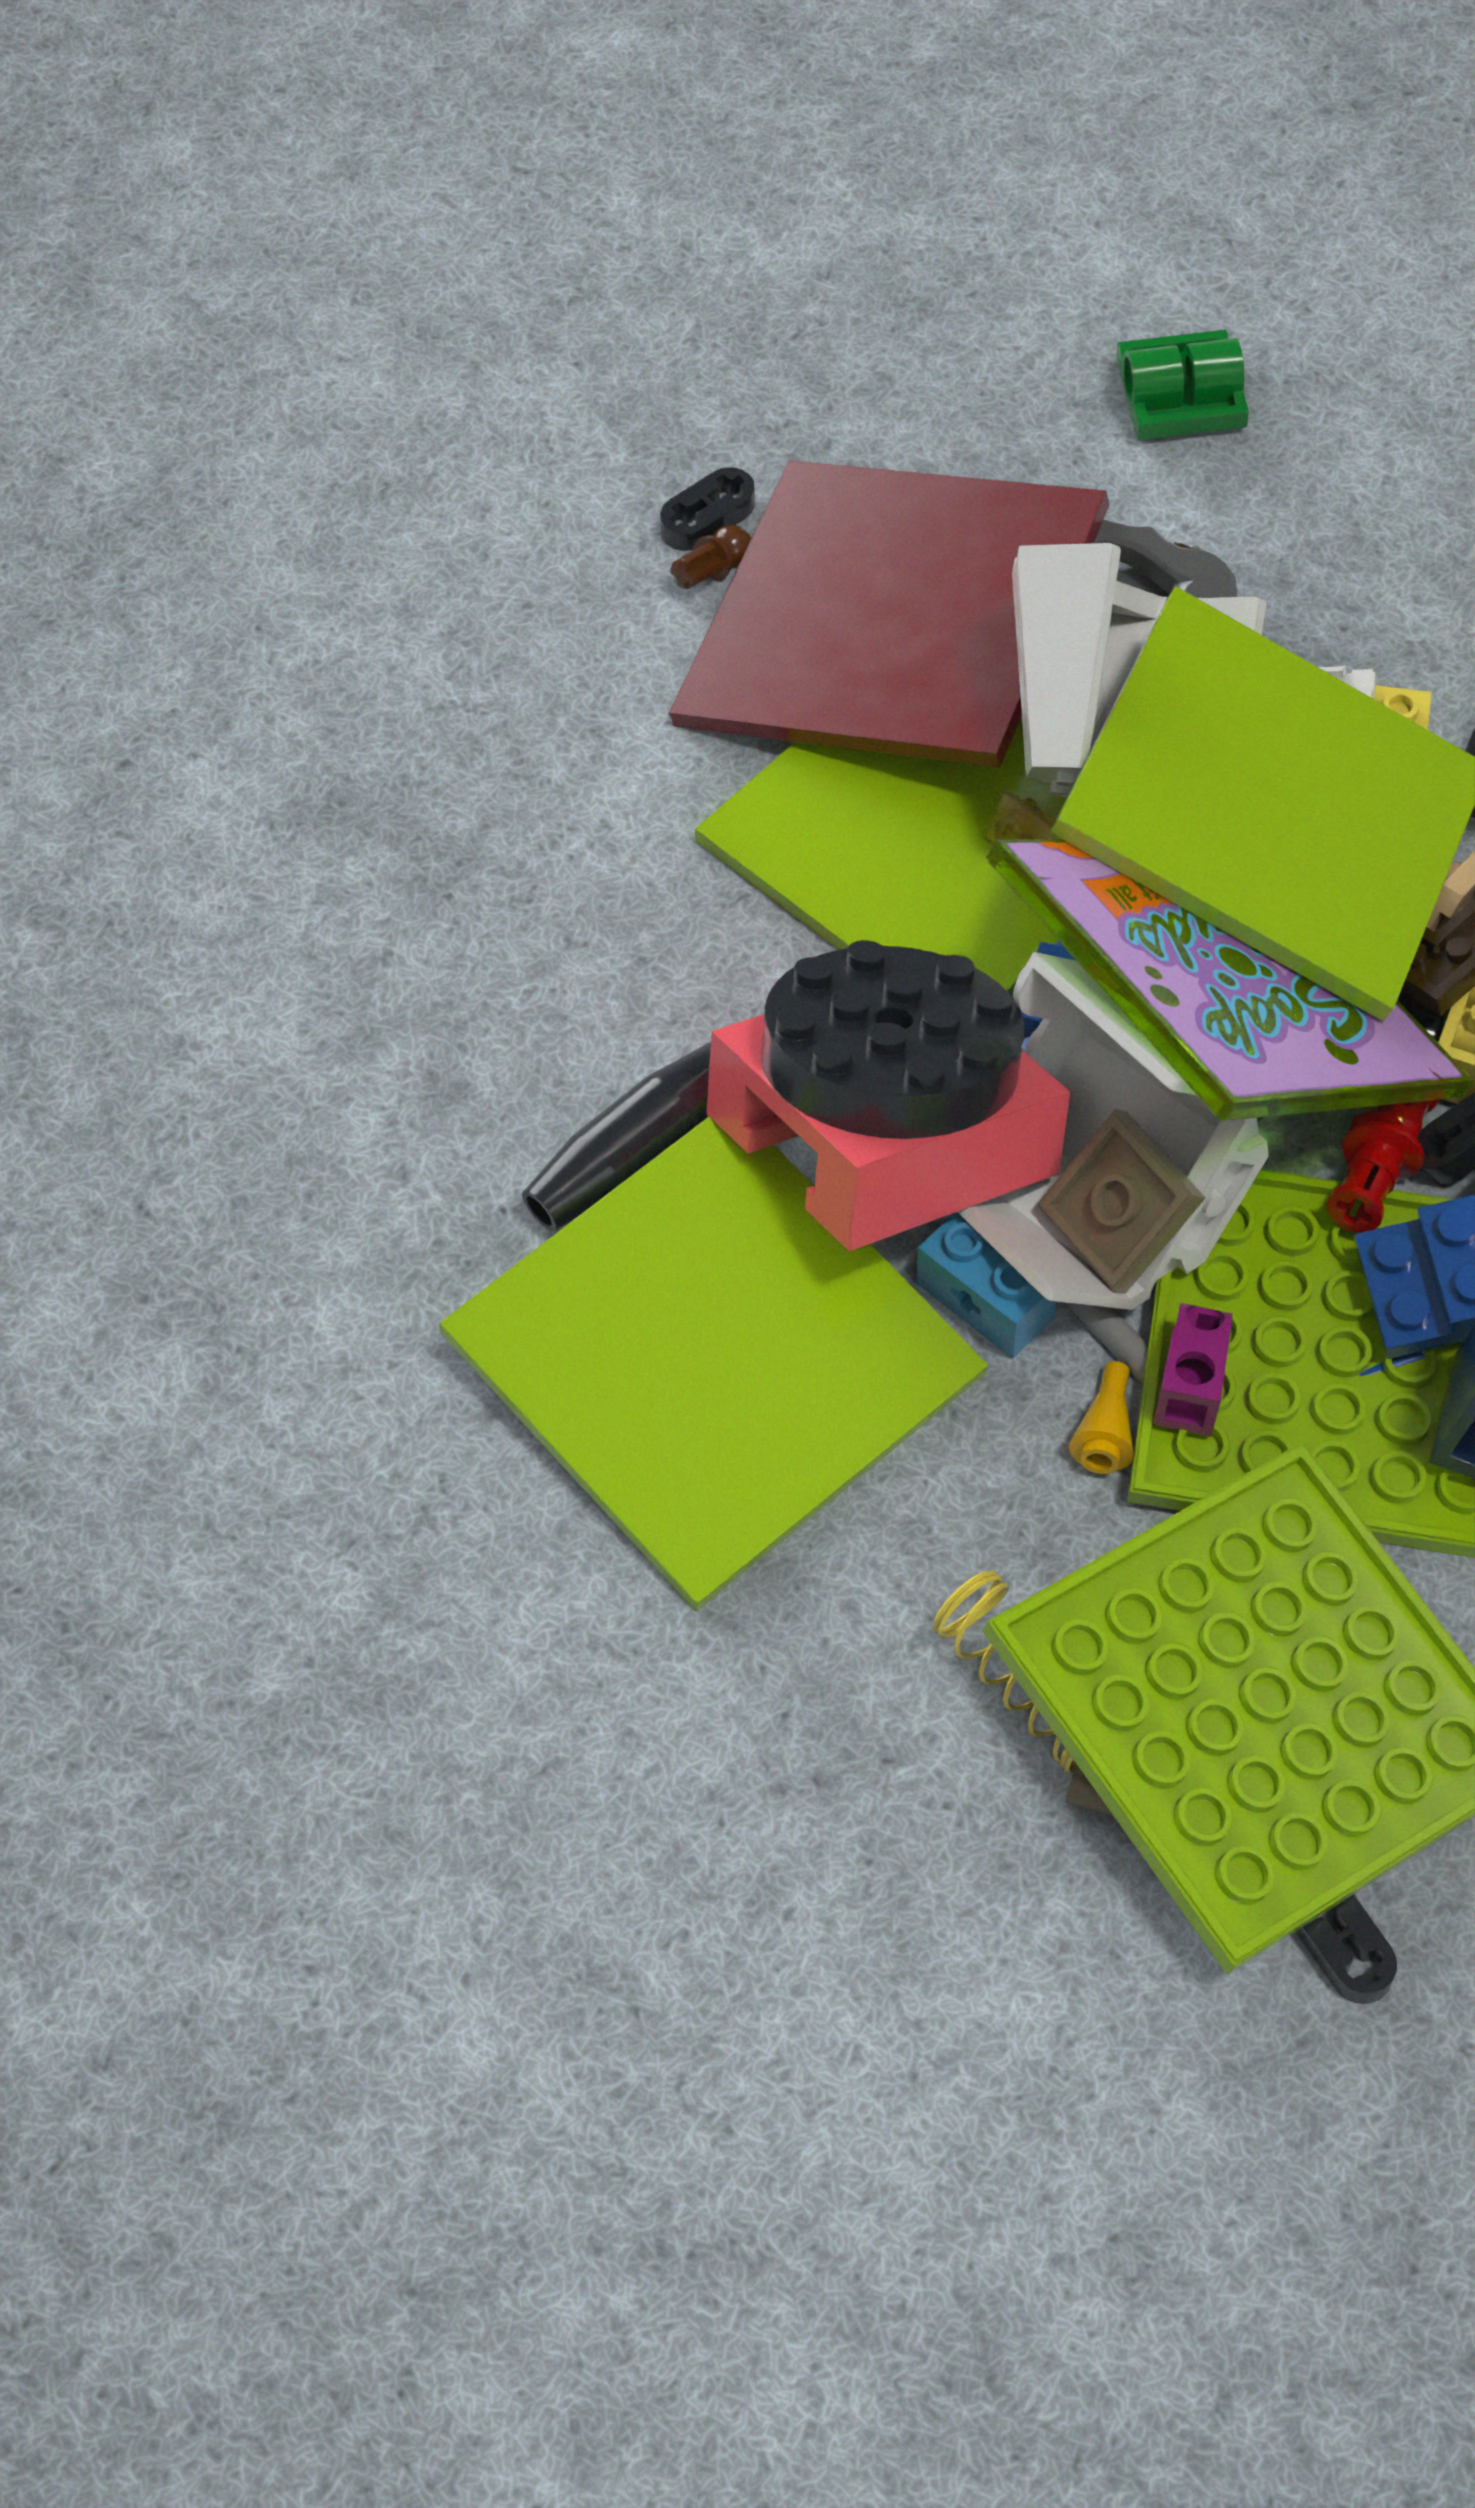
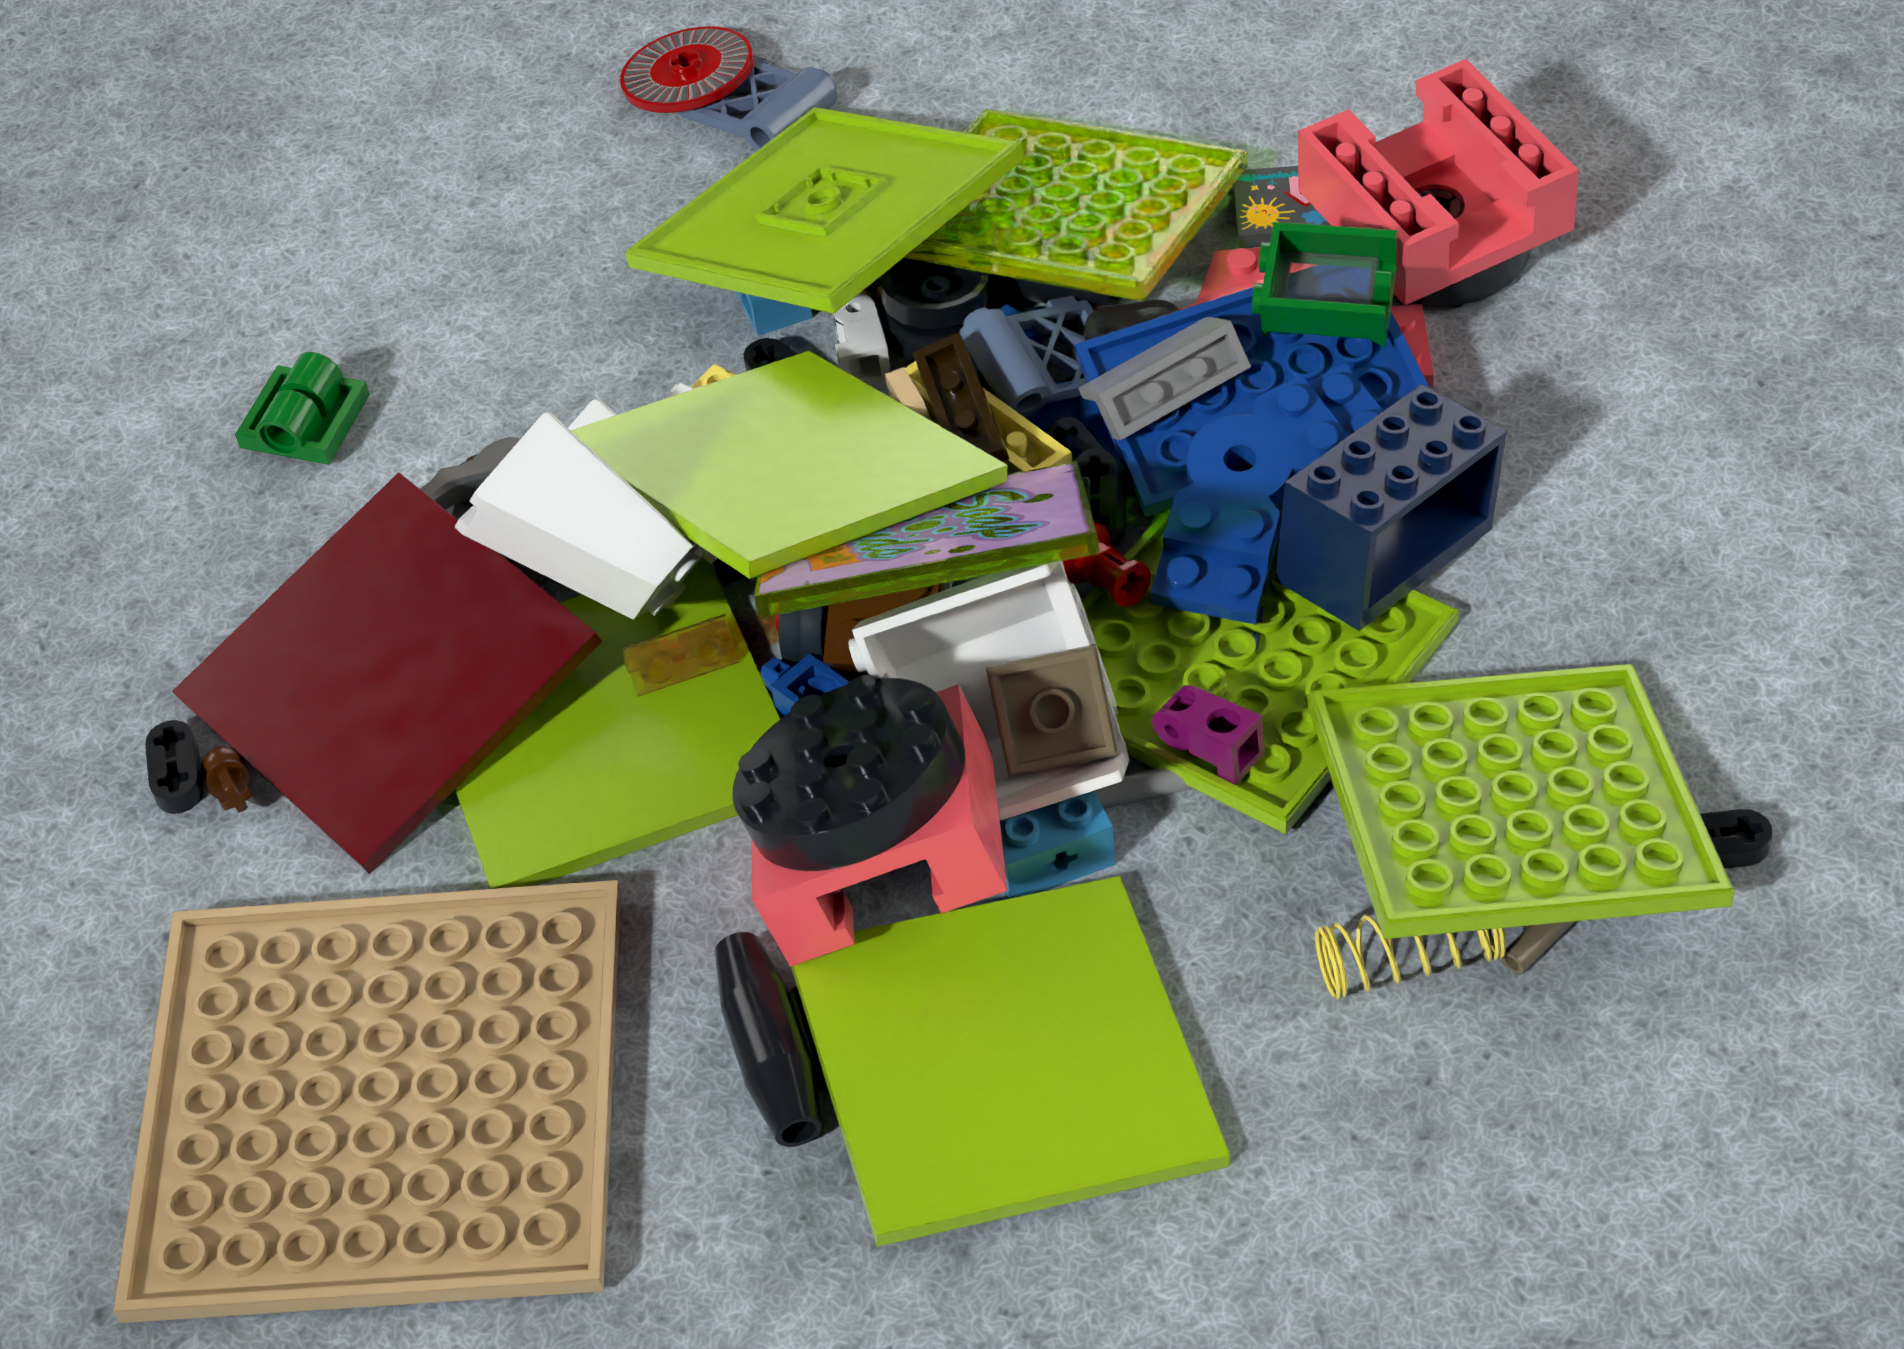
camera: 60 degrees left, 10 degrees down
(429, 860) = (377, 1104): none -> tan plate
(1104, 1435) = (1223, 822): yellow cone -> none

